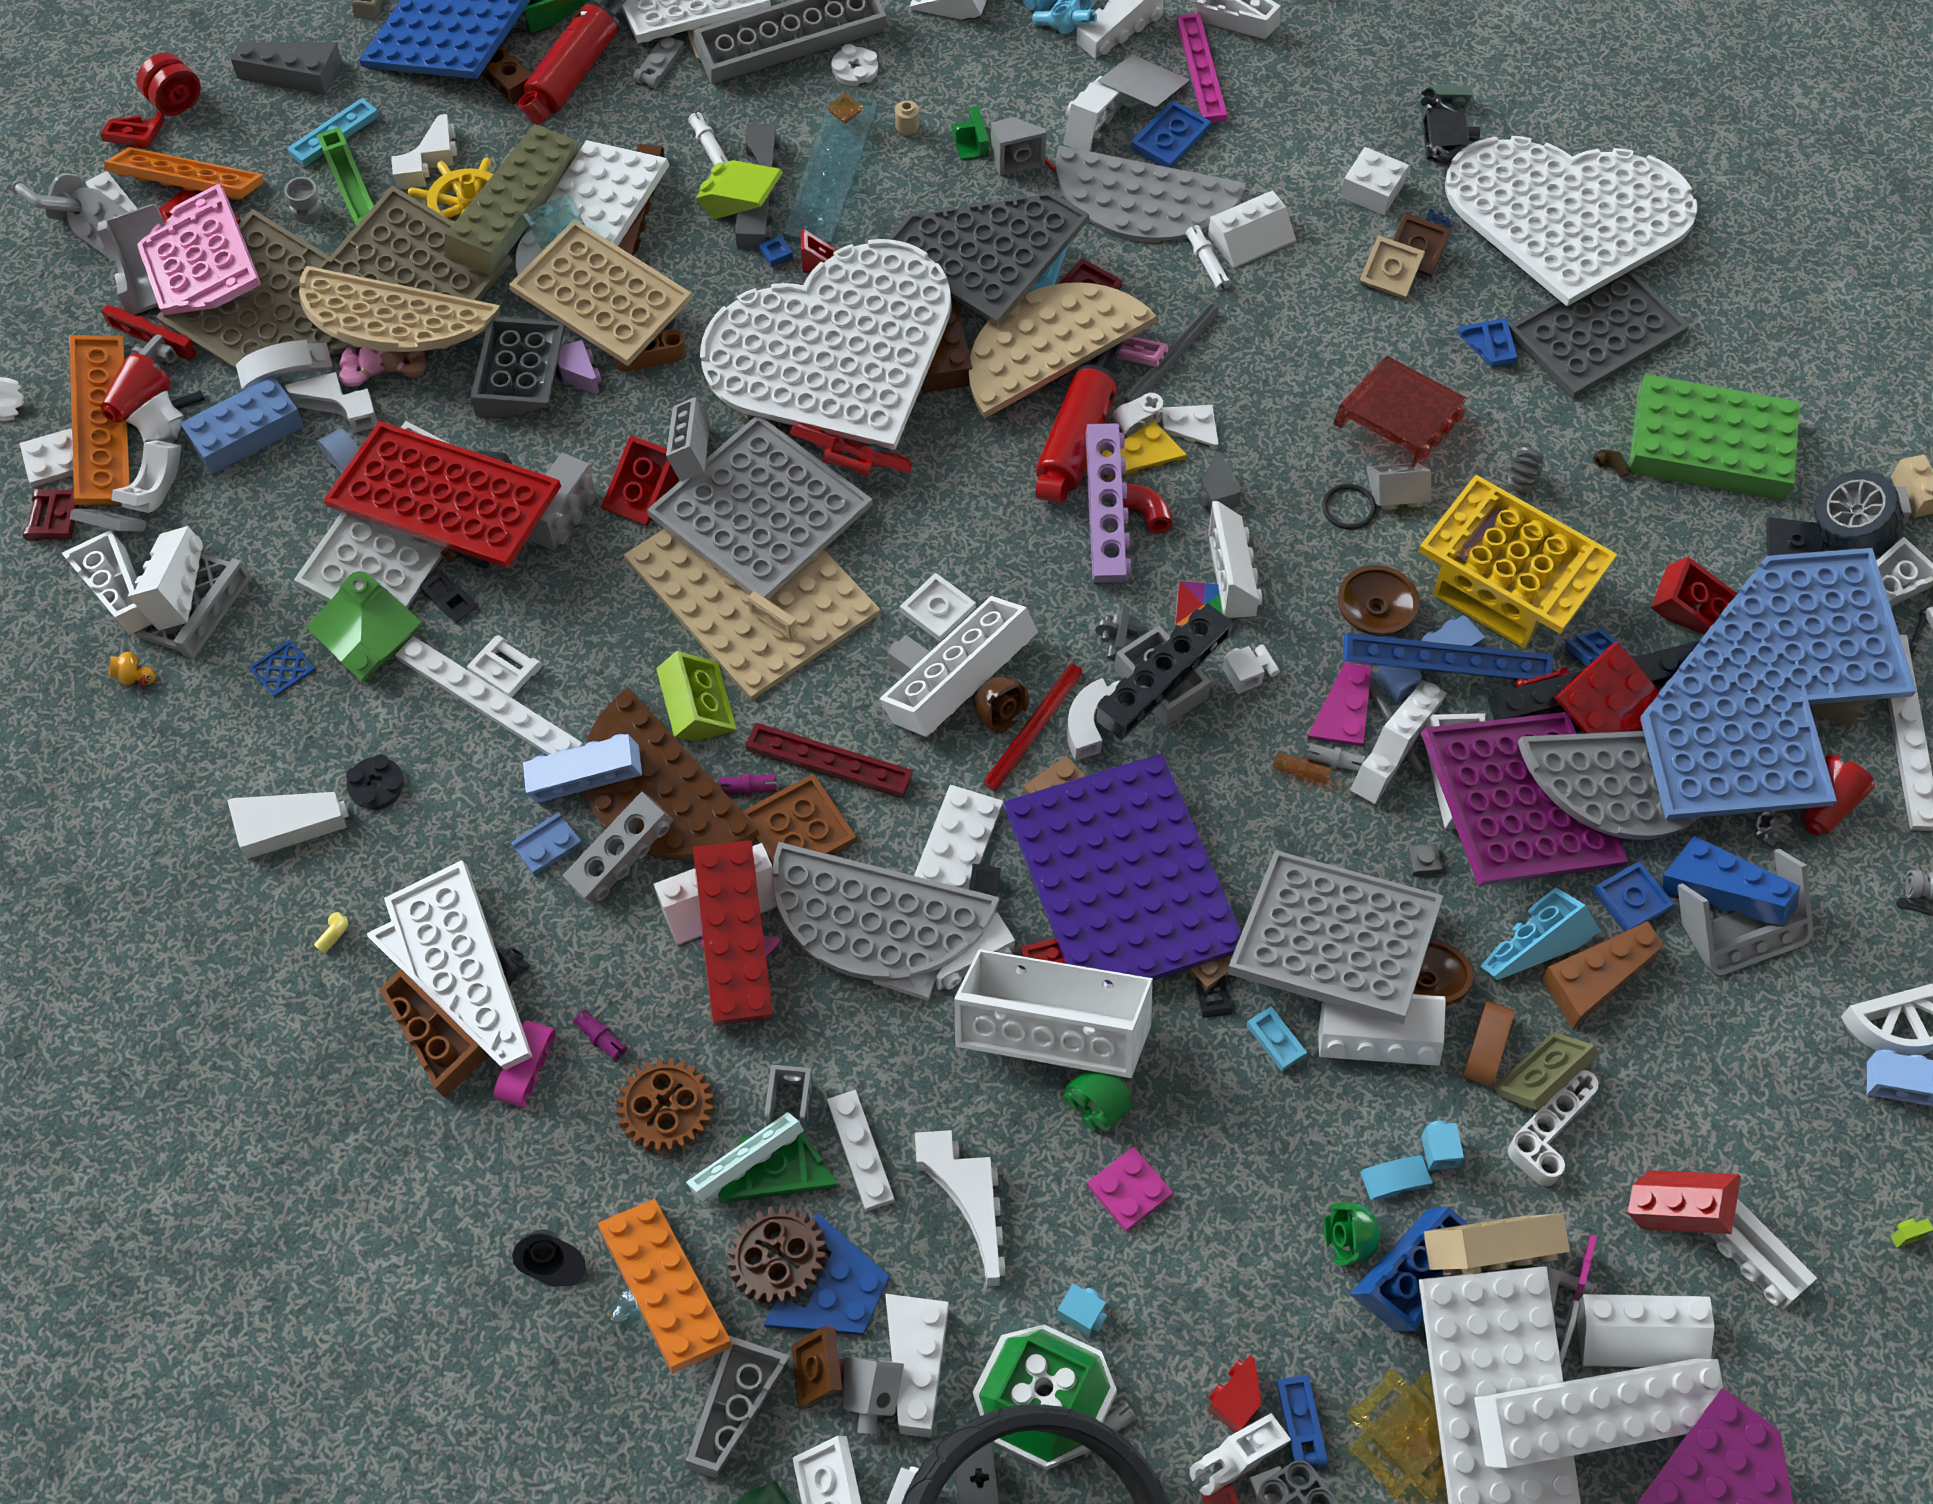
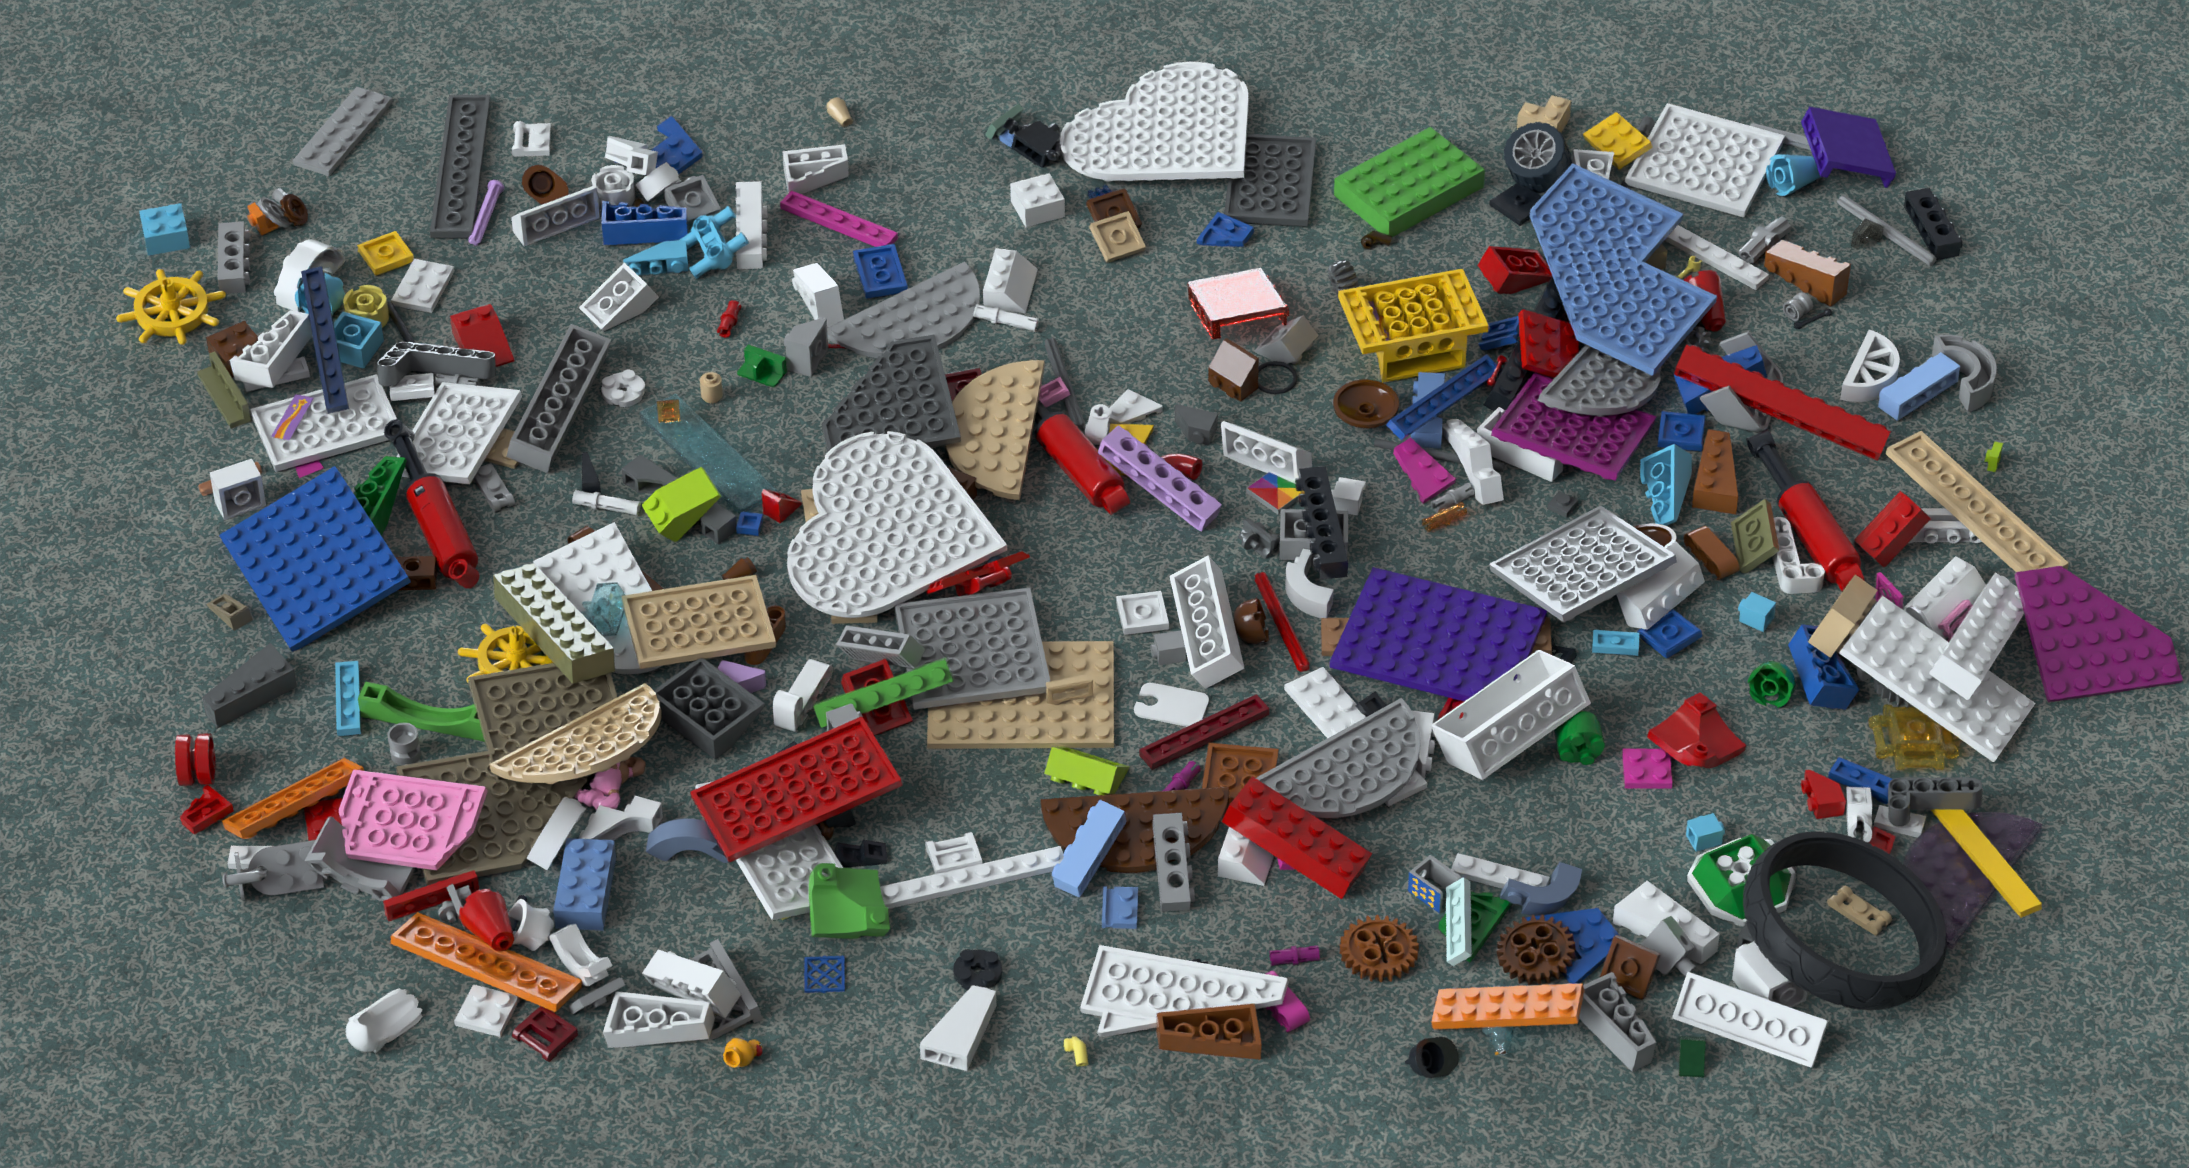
camera: 50 degrees left, 15 degrees down
(437, 145) = (439, 650): white arch -> none
(598, 424) = (792, 706): none -> white beam
(661, 493) = (889, 690): none -> bright green arch
(712, 283) = (741, 568): none -> reddish brown cone
(725, 110) = (590, 480): none -> black slope
(848, 717) = (1173, 705): none -> white piece
(859, 1222) = (1544, 899): none -> sand blue arch
(971, 1188) = (1581, 836): white arch -> none
(1006, 76) = (729, 319): none -> red pin
(1143, 80) = (819, 253): light grey sticker -> none
(1210, 1208) = (1697, 735): none -> red slope
(1309, 468) = (1234, 370): none -> slope
(1336, 1083) = (1670, 634): none -> blue plate
(1395, 1177) = (1754, 646): medium azure slope -> none
(1624, 1109) = (1809, 516): none -> red piece
(1626, 1358) = (1957, 611): none -> bright pink tile
(1752, 968) = (1783, 403): none -> red brick
(1800, 1274) = (1973, 504): none -> tan plate
(1875, 750) = (1692, 266): none -> light yellow hand

